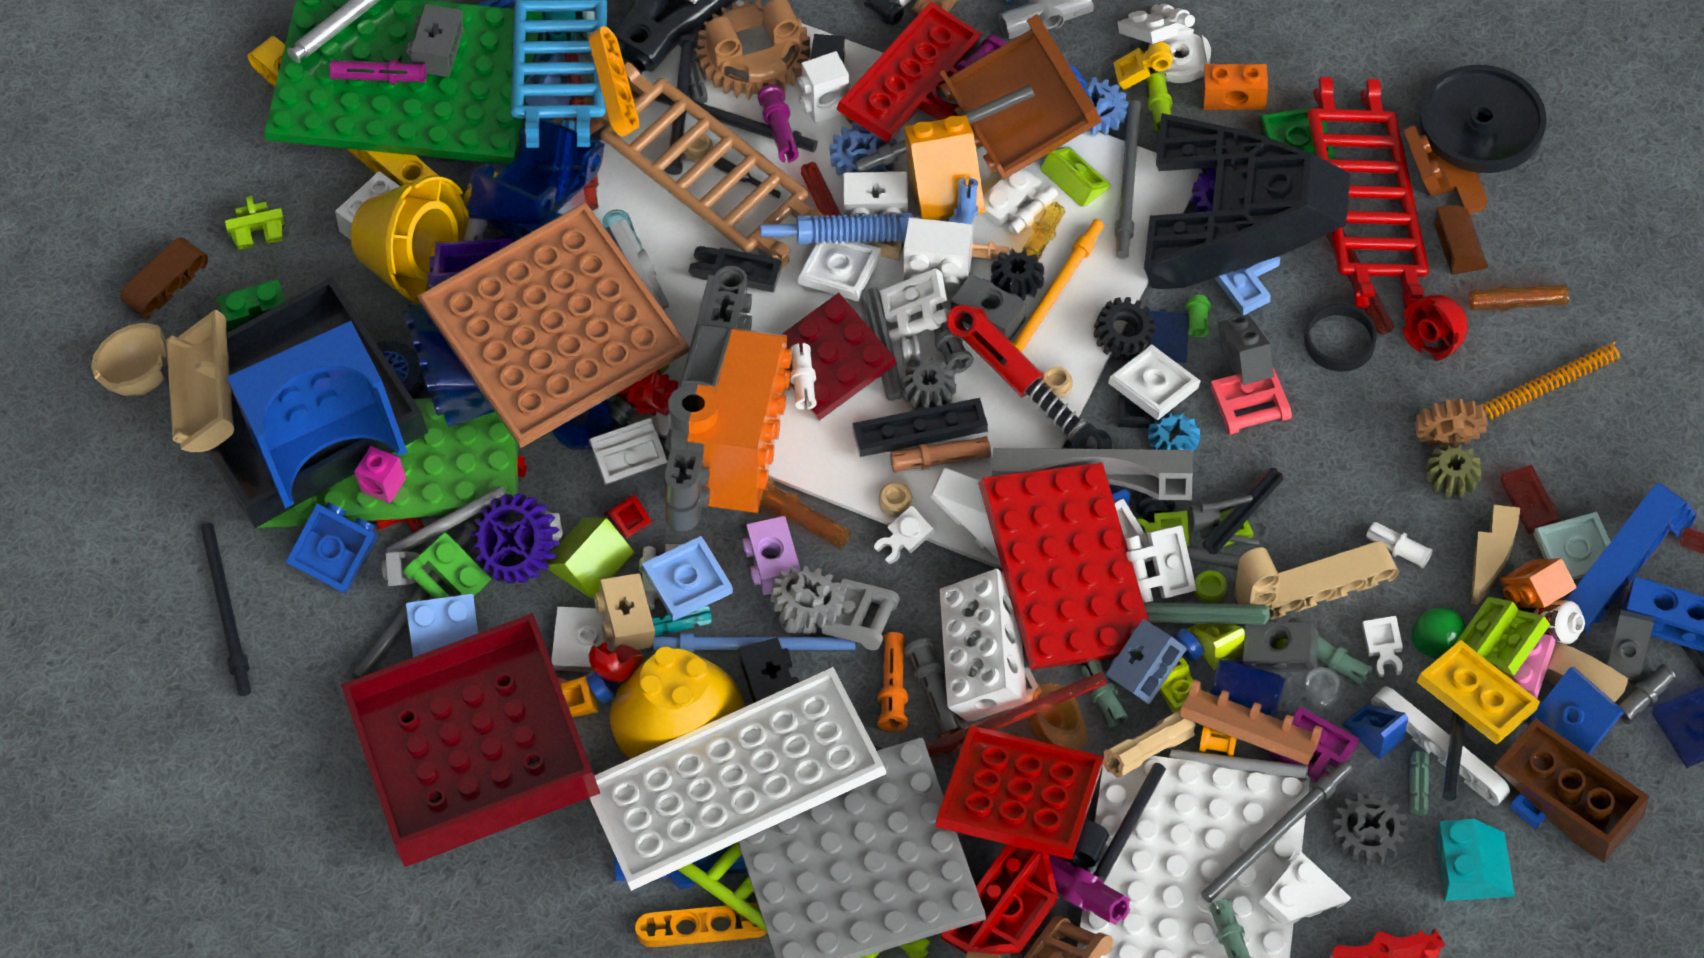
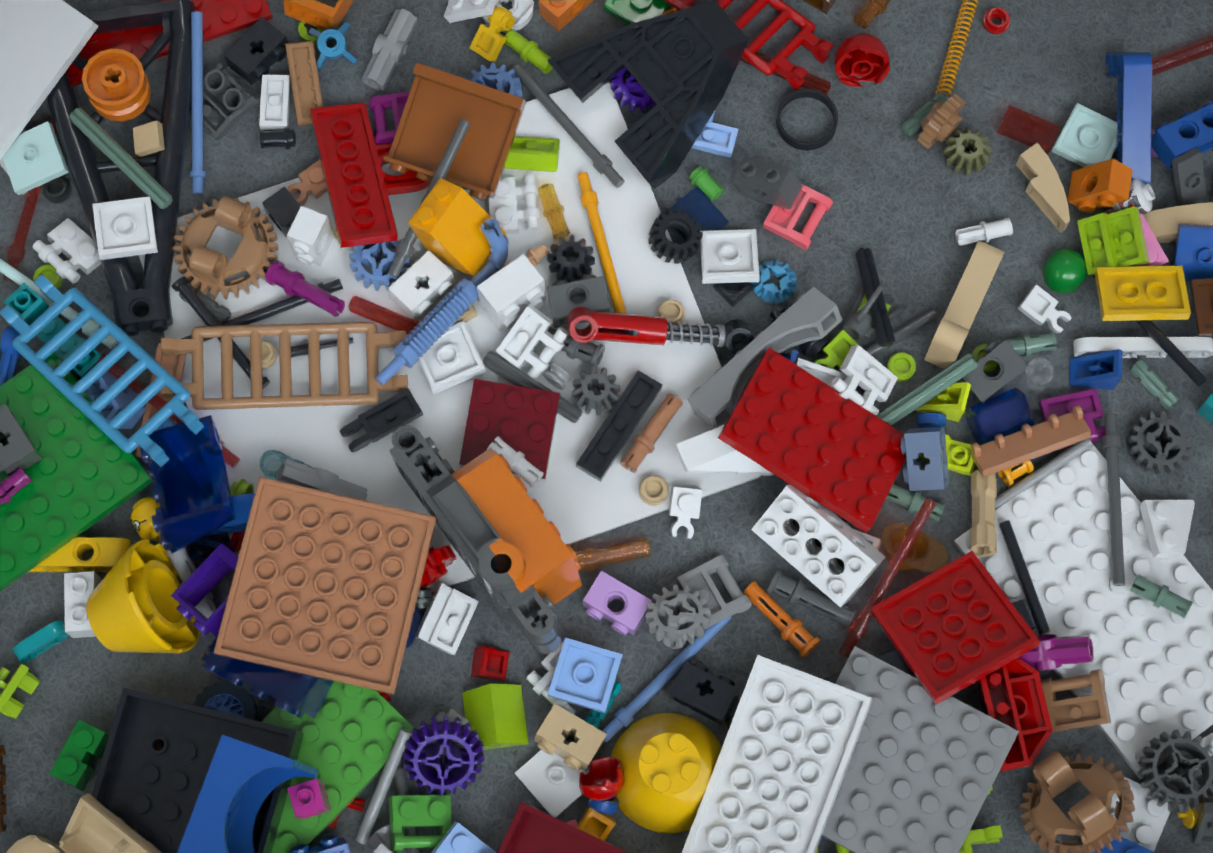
camera: 45 degrees left, 15 degrees up
(311, 210) = (40, 641): none -> teal beam
(613, 81) = (169, 362): light orange beam -> none
(864, 57) = (311, 183): none -> nougat plate
(1598, 387) = (996, 13): none -> red plate

